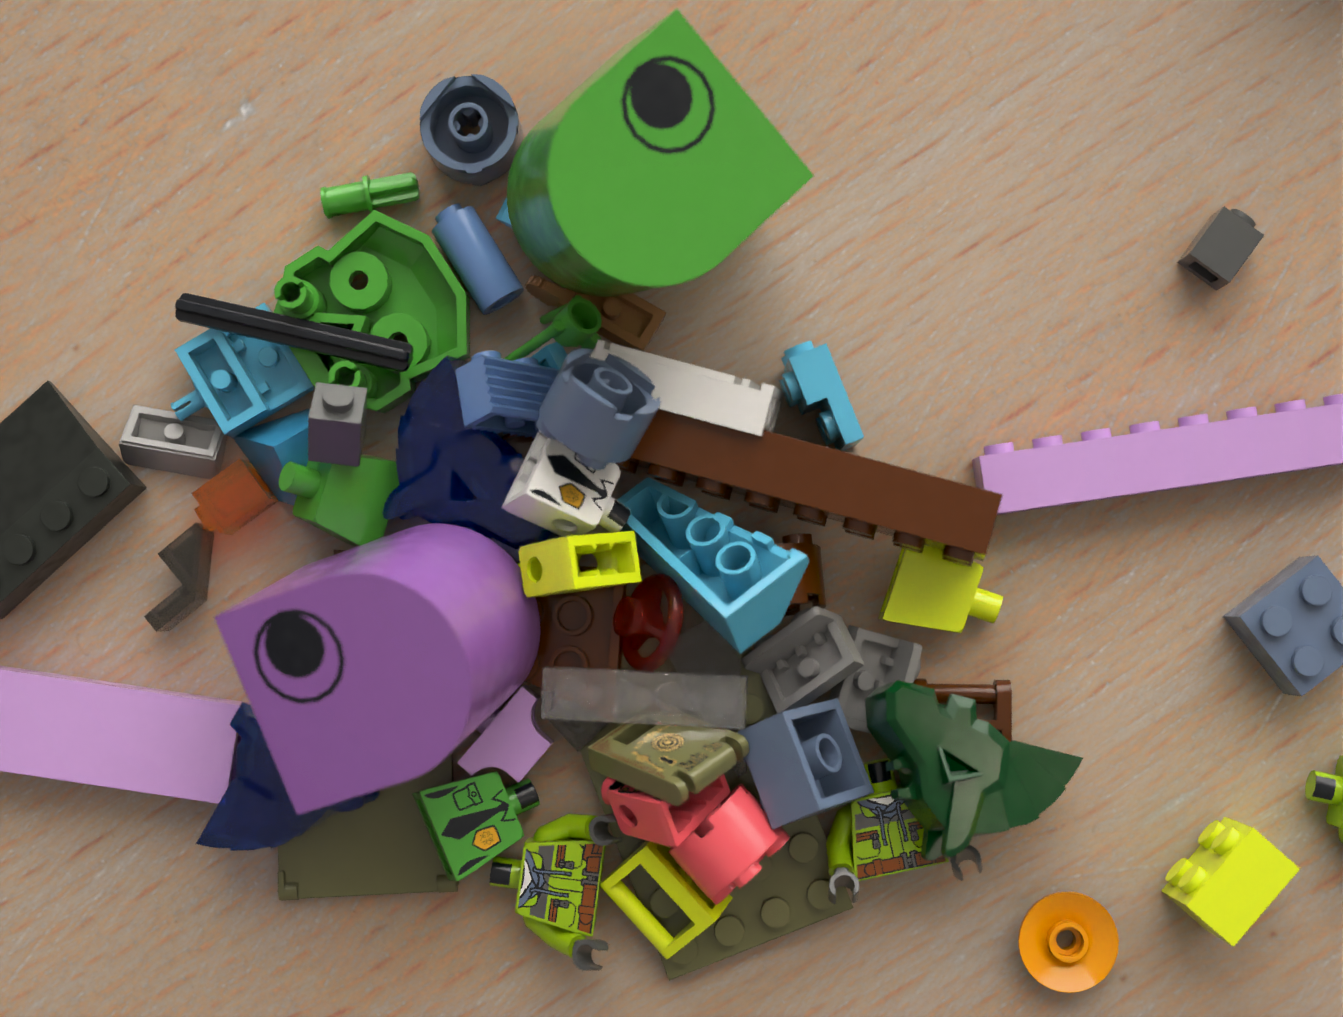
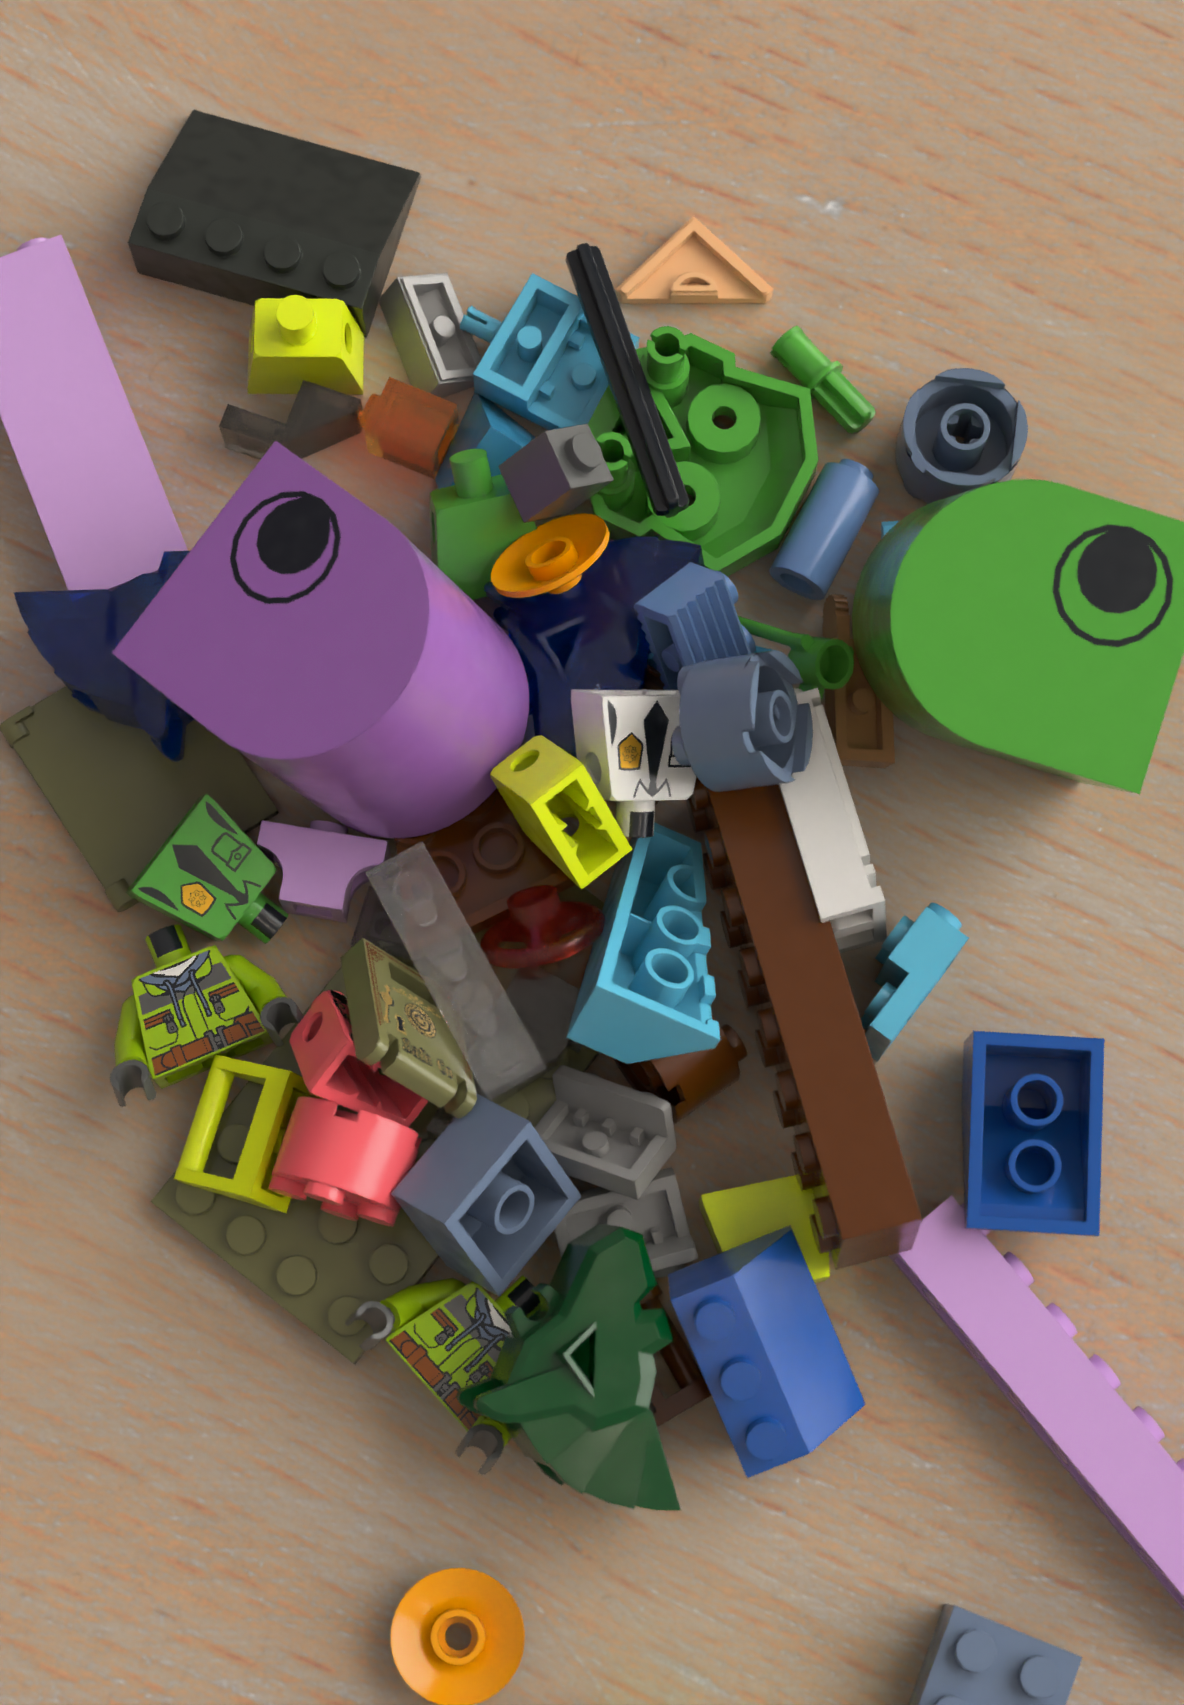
camera: 50 degrees right, 10 degrees down
(132, 537) = (304, 341): none -> neon yellow torso
(235, 233) = (694, 270): none -> light nougat tile
(394, 463) = (550, 556): none -> light orange dish
(971, 378) = (1032, 1133): none -> blue slope
(1008, 638) = (766, 1349): none -> blue slope

